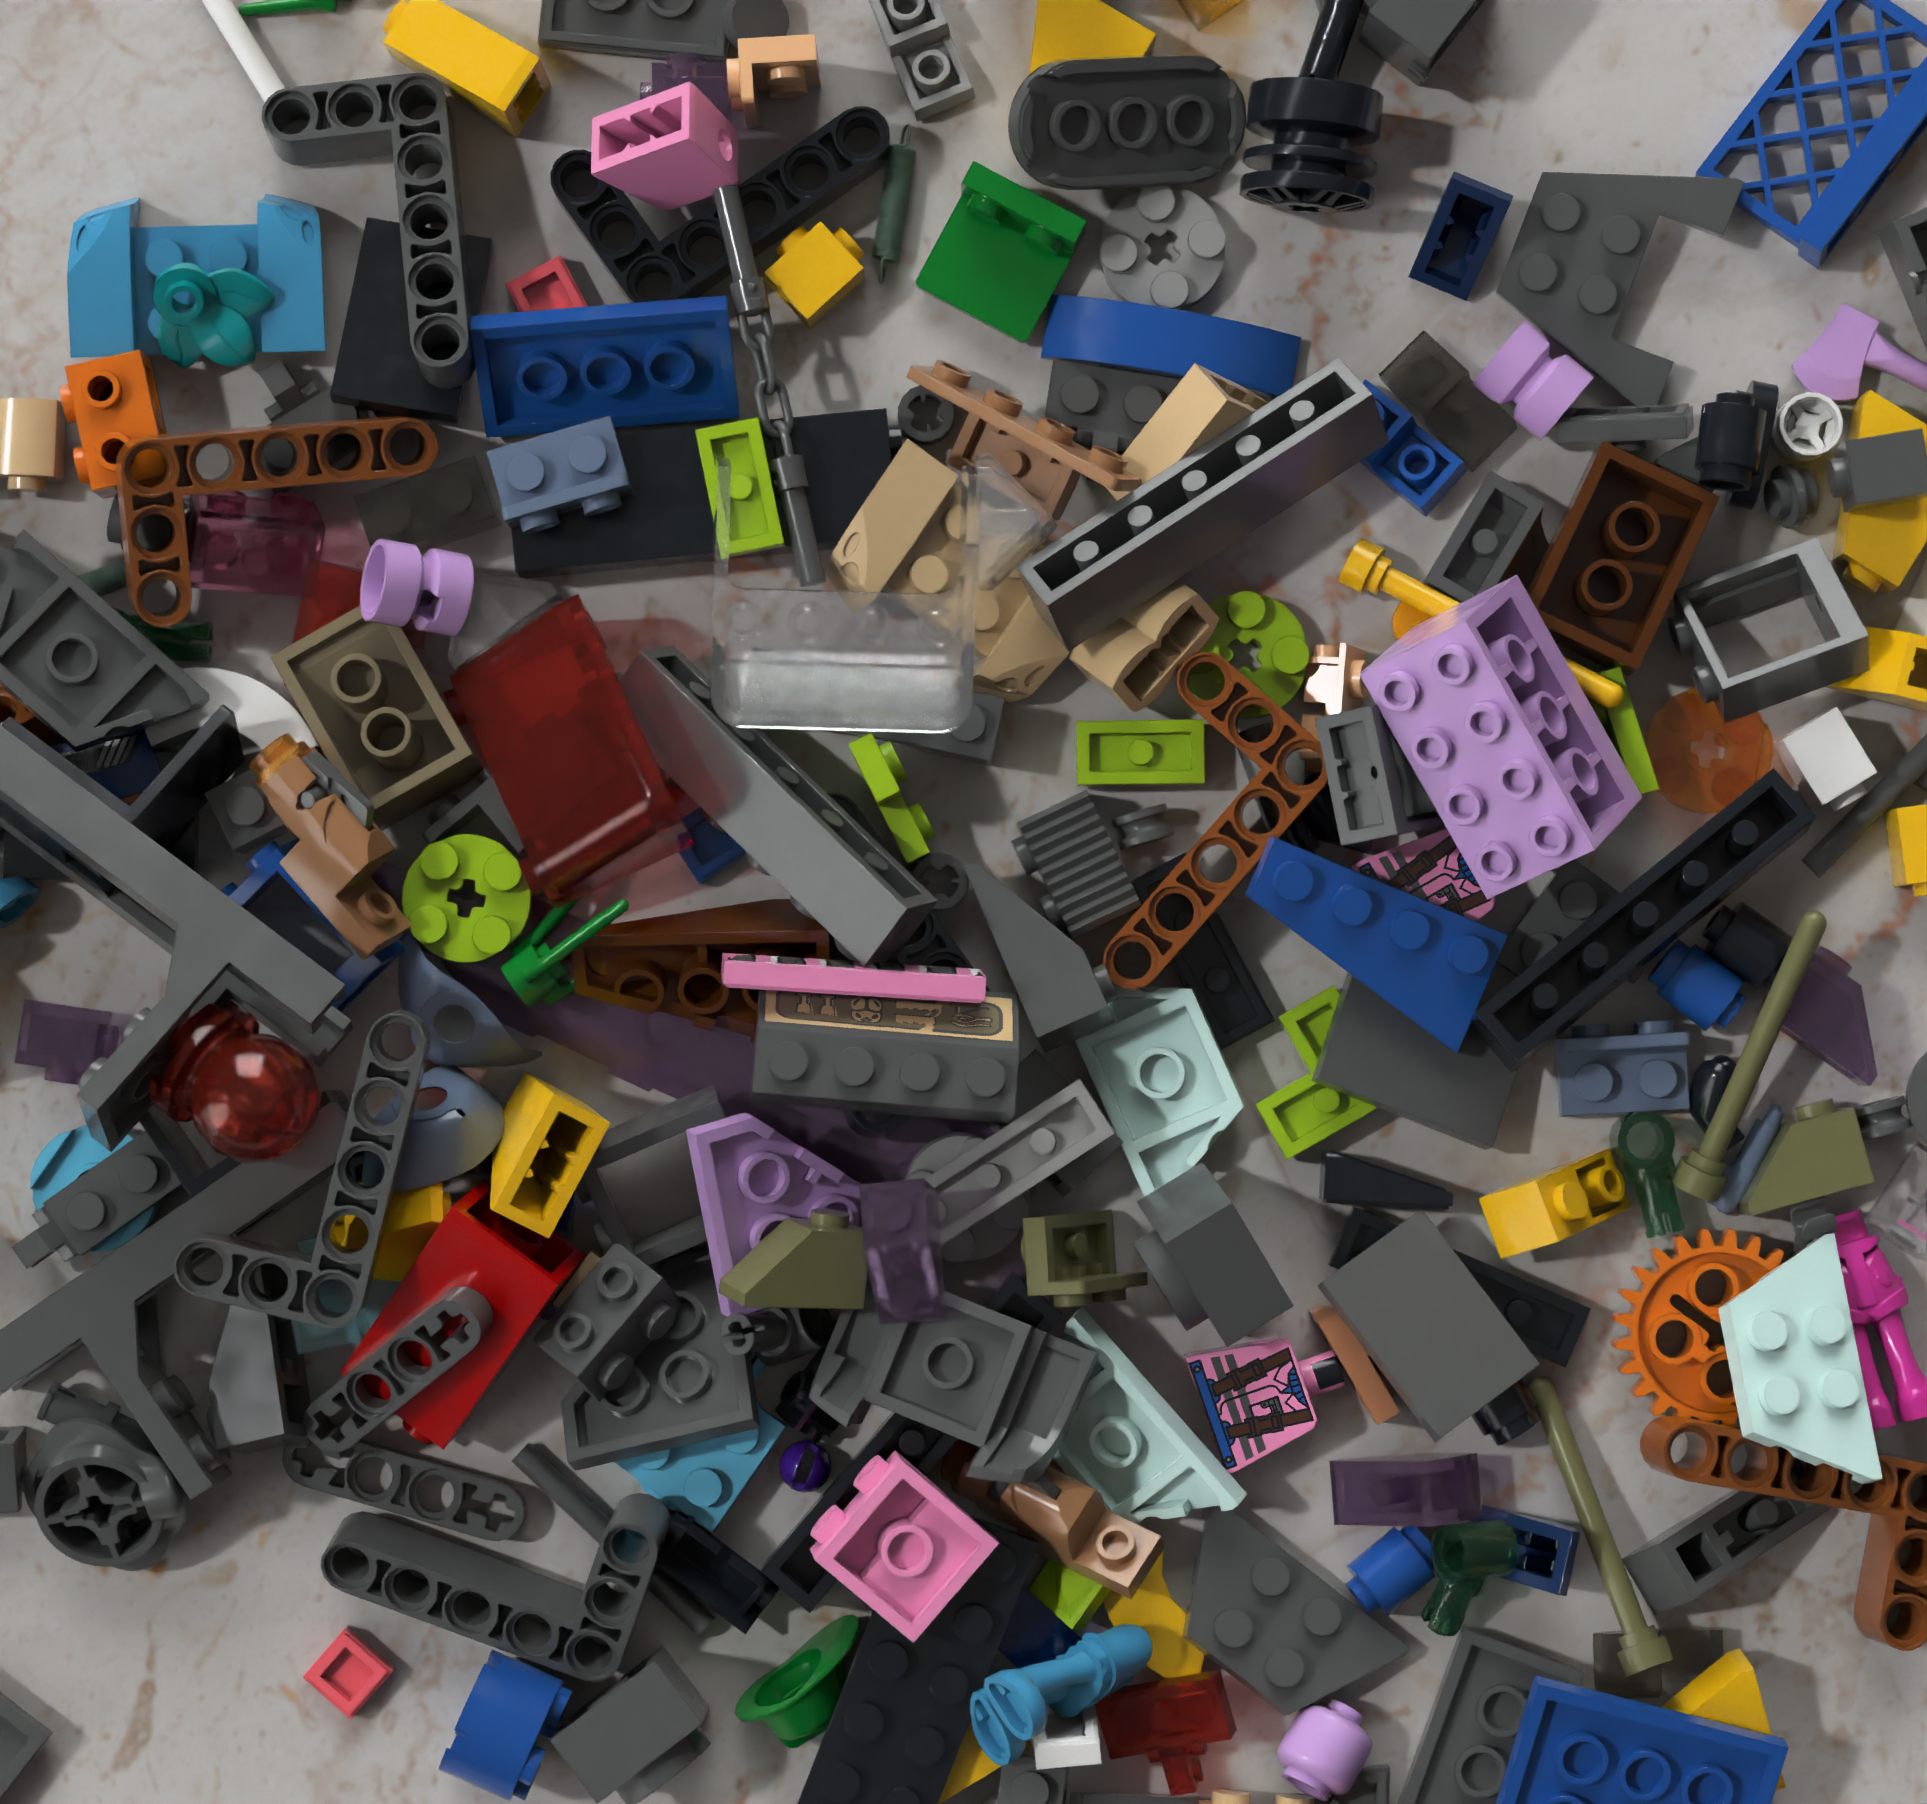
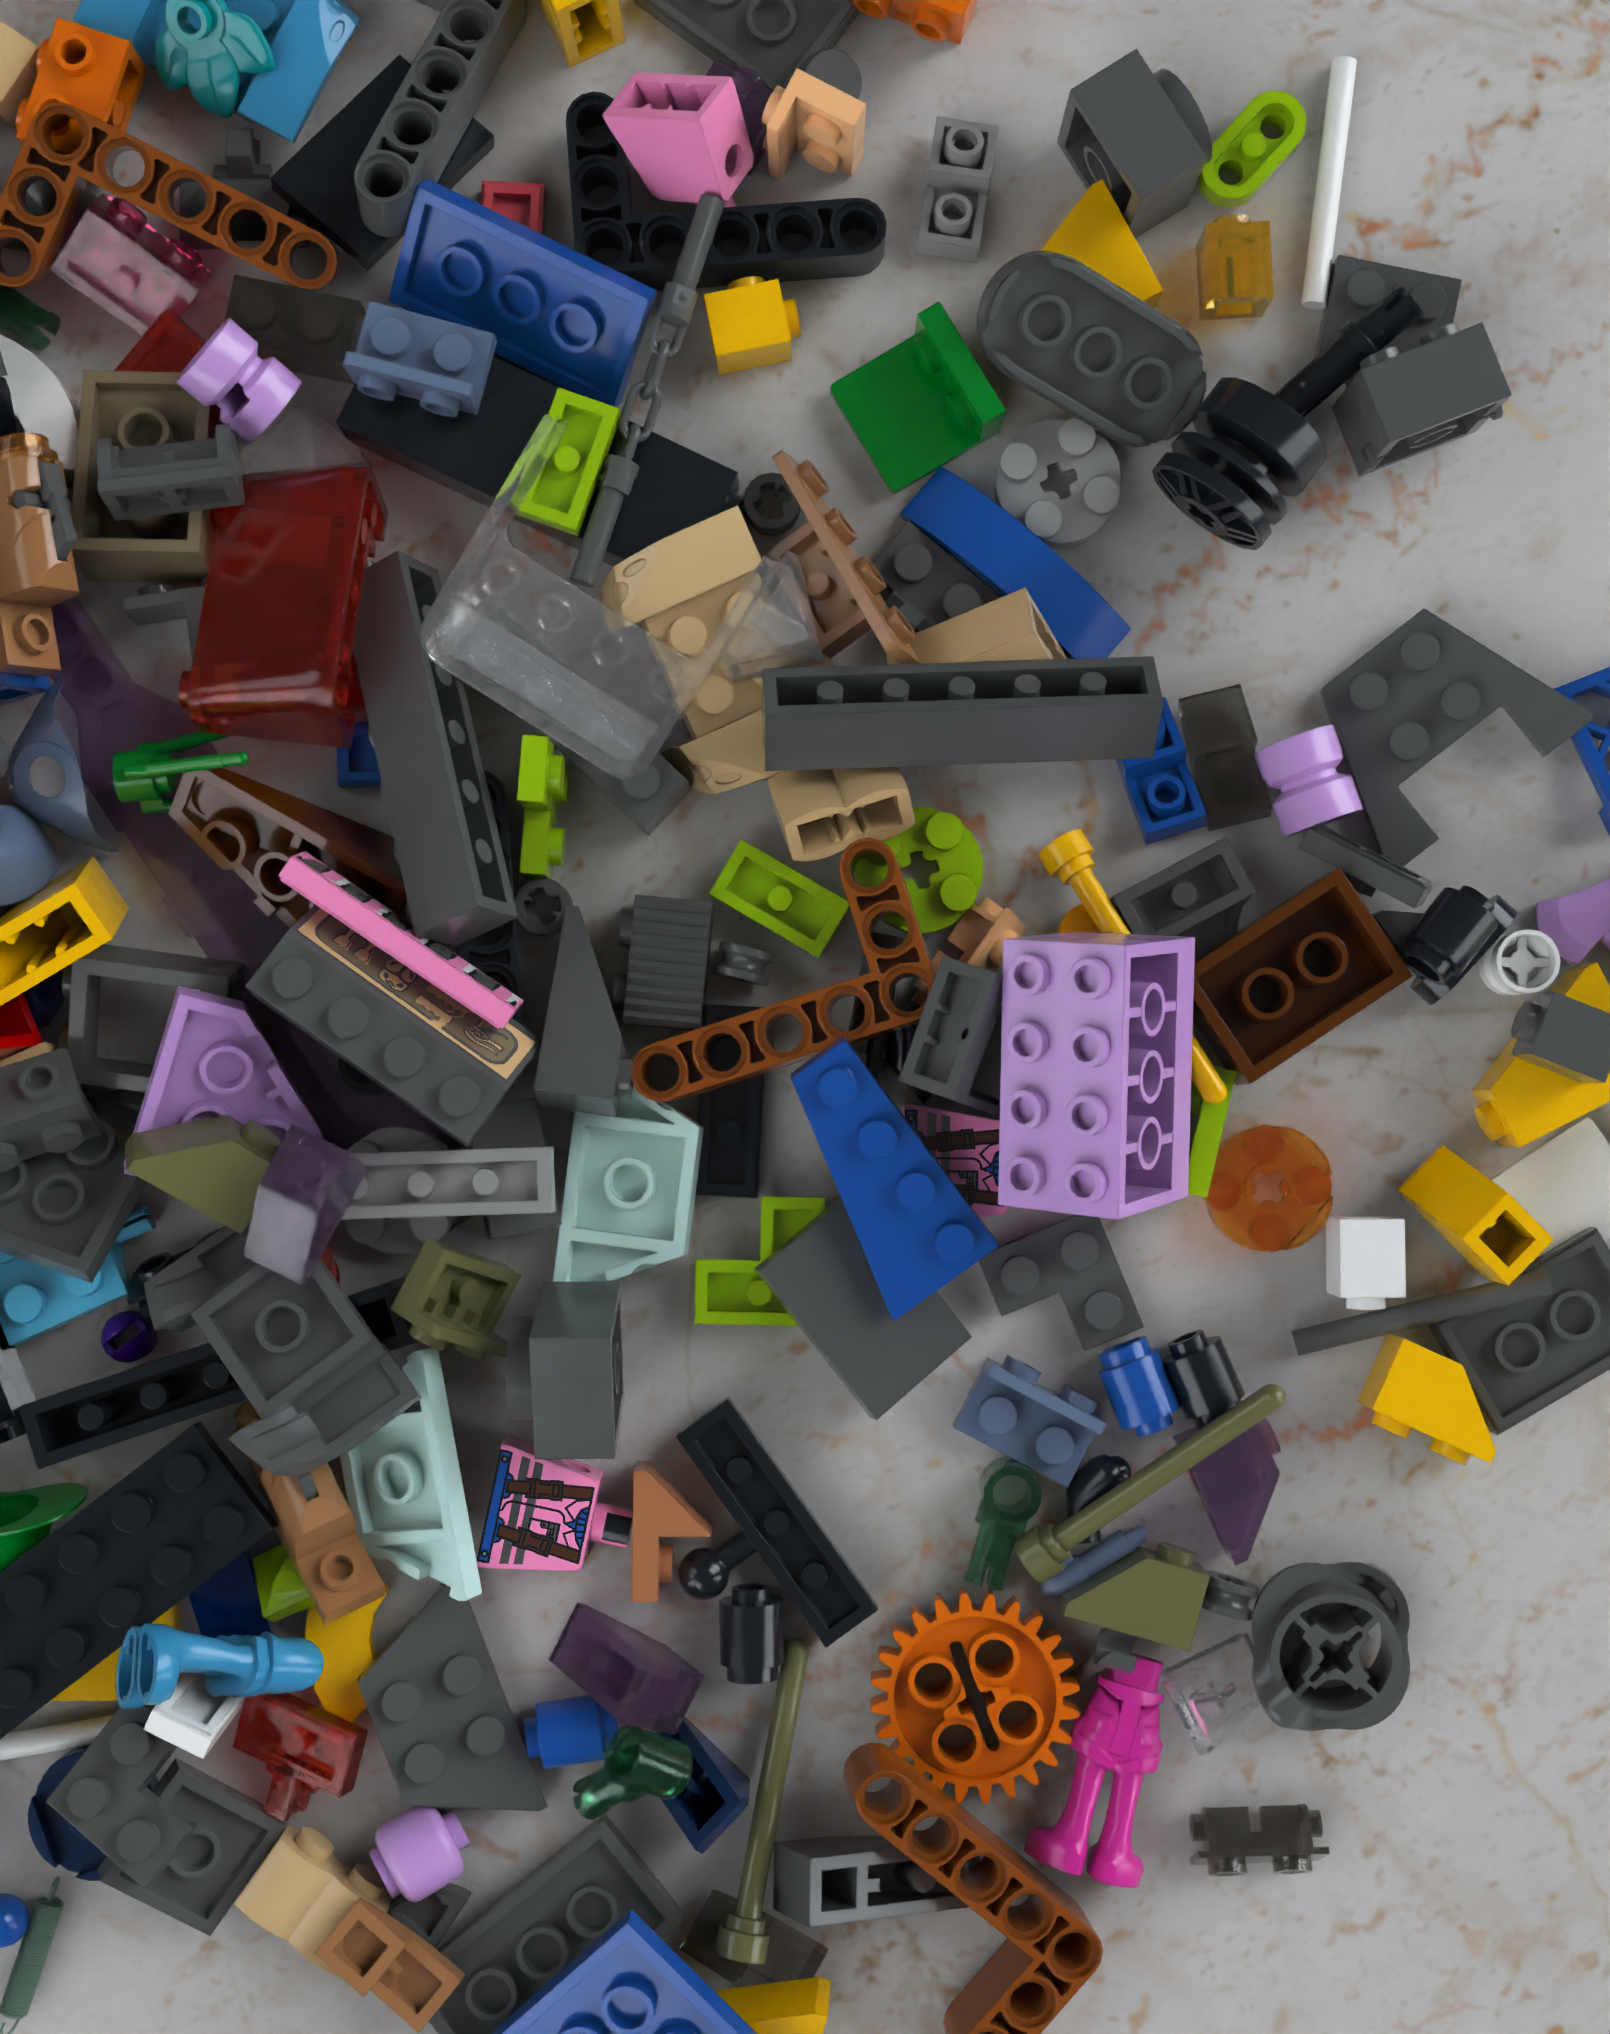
camera: 30 degrees right, 0 degrees up
(412, 701) = (170, 476): none -> dark grey hinge
(436, 920) = (89, 677): lime plate -> none
(778, 1333) = (156, 1210): dark grey pin -> none
(894, 203) = (853, 309): sand green piece -> none
(901, 1544) = (143, 1460): bright pink plate -> none
(1362, 1183) = (750, 1386): black slope -> none
(1428, 1325) = (726, 1544): dark grey tile -> none
(1460, 235) = (1321, 619): dark blue slope -> none
(1555, 1203) = (901, 1500): yellow slope -> none
(1642, 920) = (1125, 1303): black brick -> none
(1753, 586) = (1398, 1072): dark grey window -> none
(1791, 495) = (1471, 1013): dark grey plate -> none
(1800, 1364) = (1028, 1776): light aqua wing -> none

